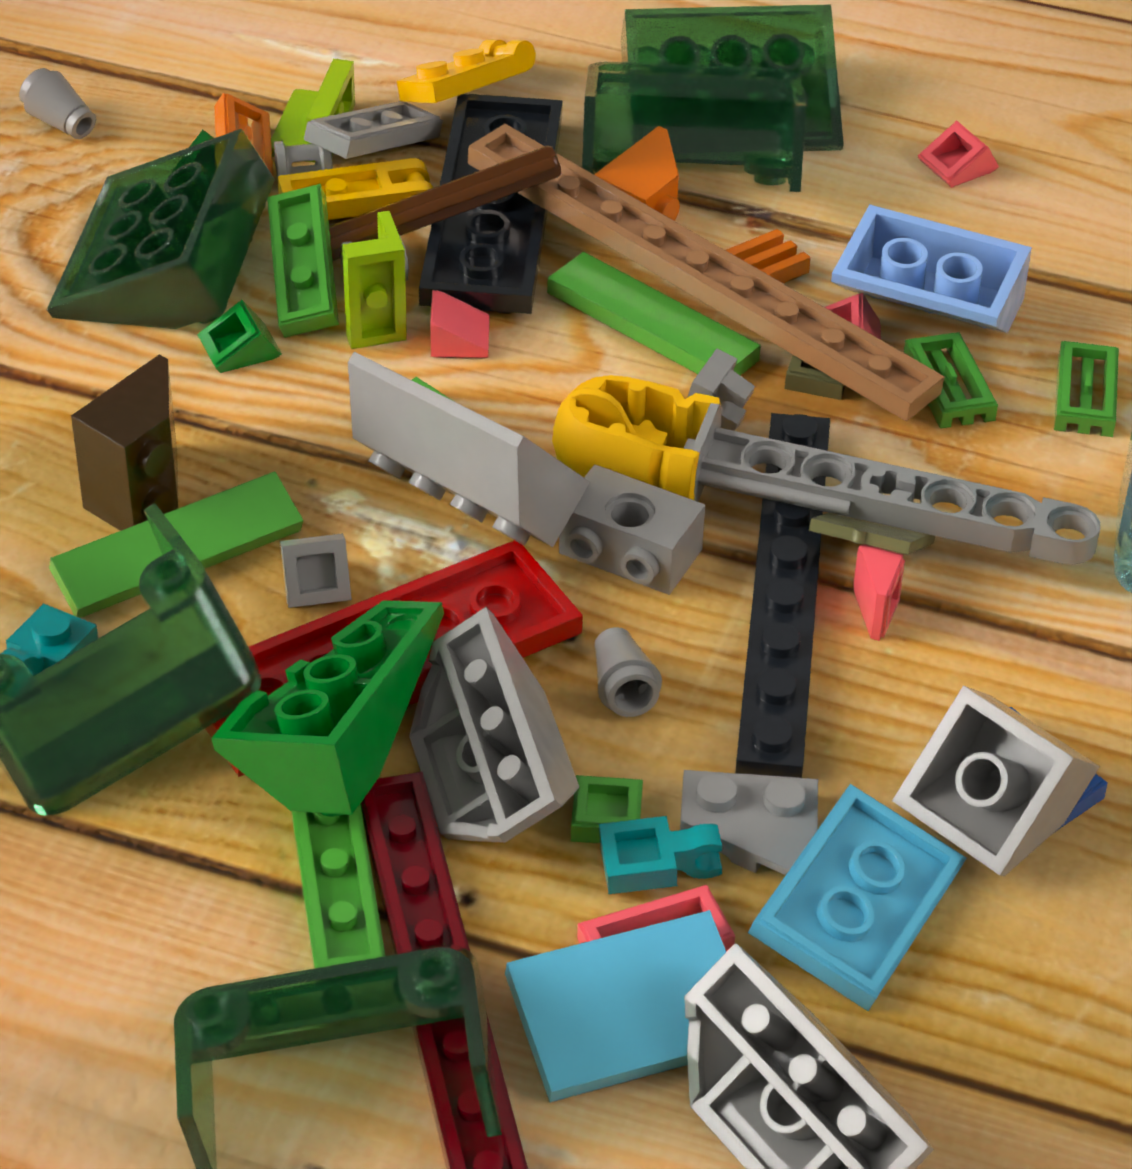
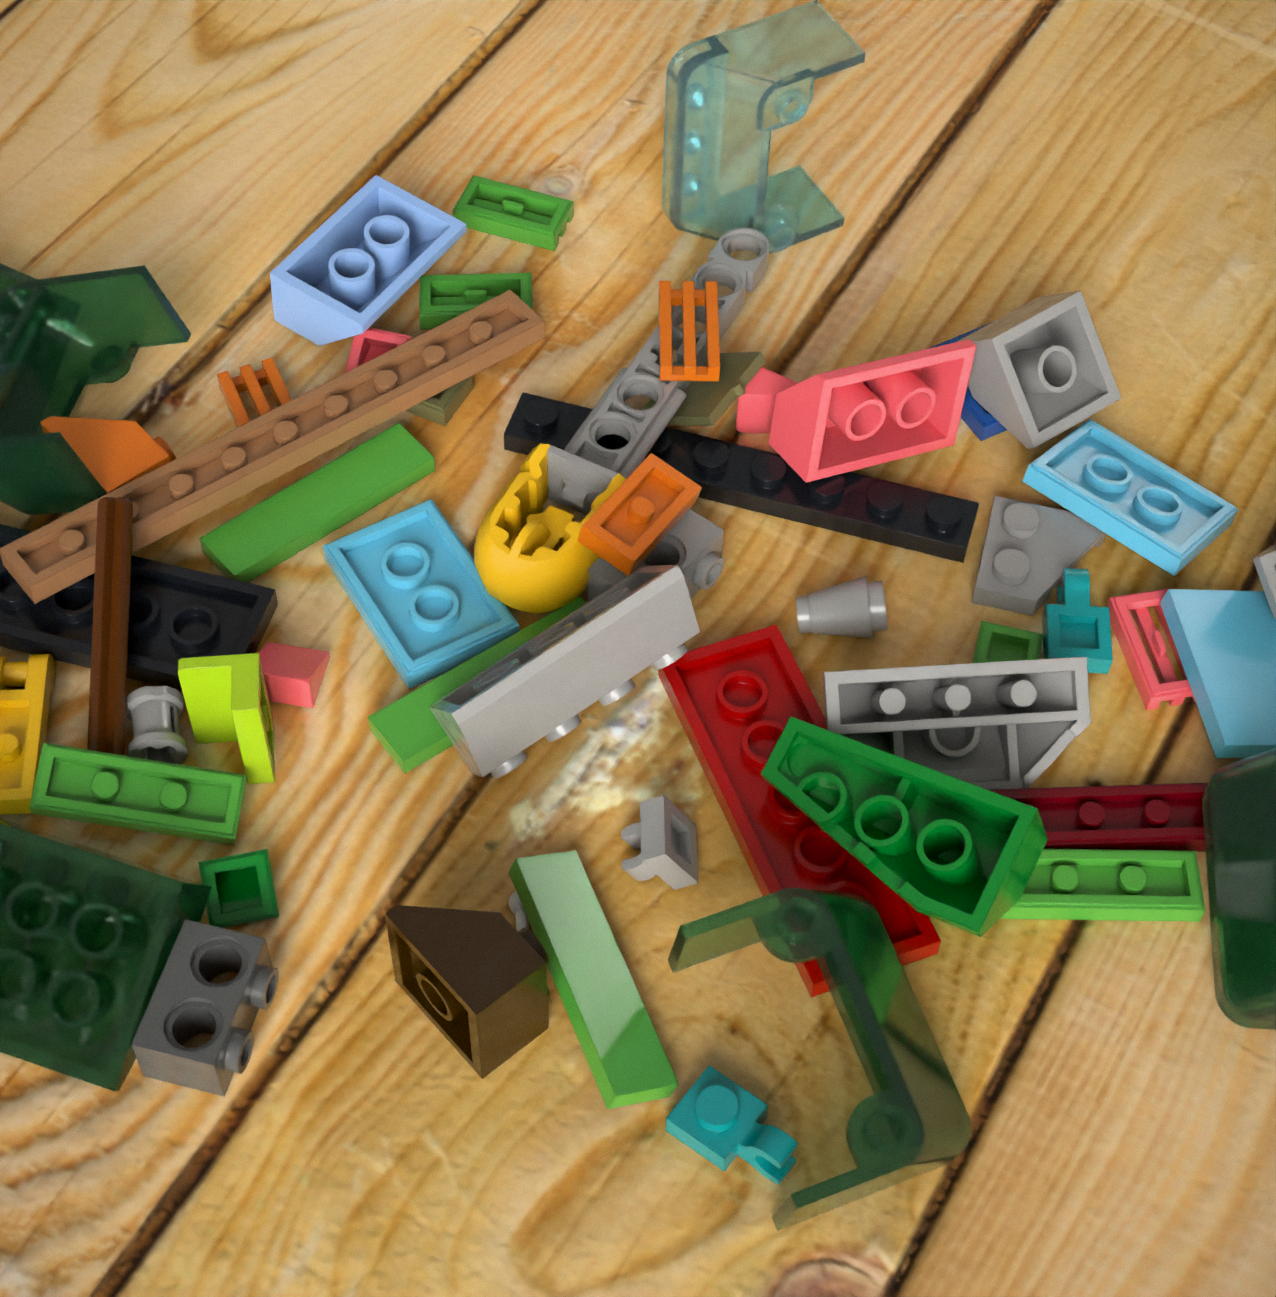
camera: 80 degrees left, 10 degrees up
(111, 328) = (191, 1005): none -> dark grey brick
(532, 393) = (419, 592): none -> medium azure tile
(650, 469) = (639, 514): none -> orange plate
(720, 380) = (468, 468): light grey tile -> none
(862, 642) = (872, 411): none -> coral slope
(915, 485) = (688, 299): none -> orange tile
(958, 156) = (139, 219): coral slope -> none

